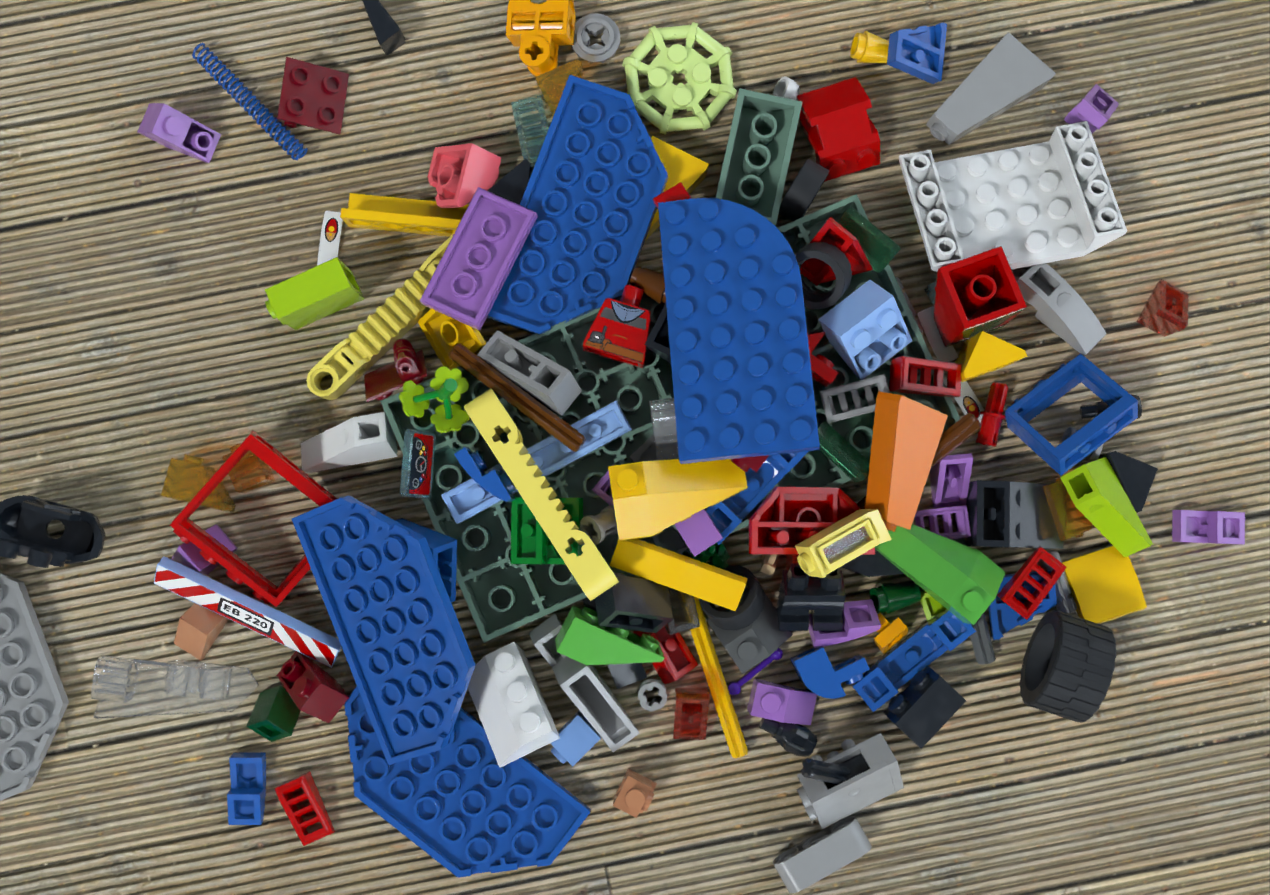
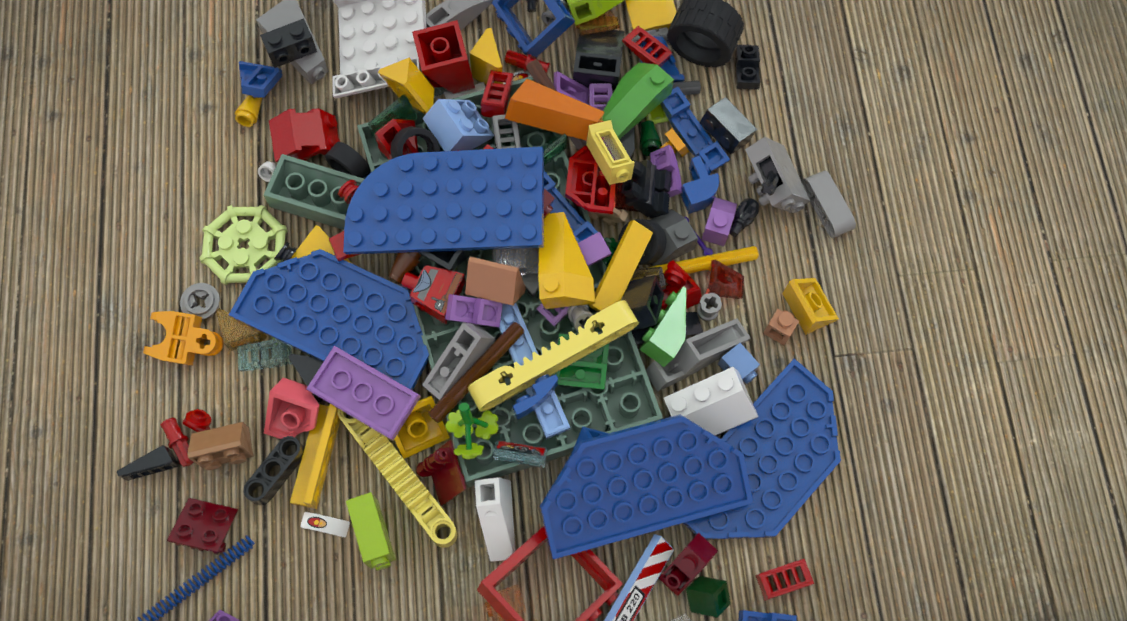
camera: 85 degrees left, 15 degrees down
(377, 156) = (273, 483): none -> black beam
(406, 97) = (221, 446): none -> medium nougat slope
(412, 47) = (177, 440): none -> red axle
(441, 66) = (197, 420): none -> red plate
(596, 383) = (473, 310): none -> medium lavender slope
(629, 404) = (494, 281): none -> nougat slope
(664, 132) = (285, 253): none -> black bush
(670, 832) = (809, 304): none -> yellow slope
(691, 647) = (675, 275): none -> red plate
(752, 198) = (347, 190): none -> red bush
(917, 256) = (407, 80): none -> yellow slope
(970, 81) = (288, 43): none -> black brick
(1027, 730) = (747, 67): none -> black slope

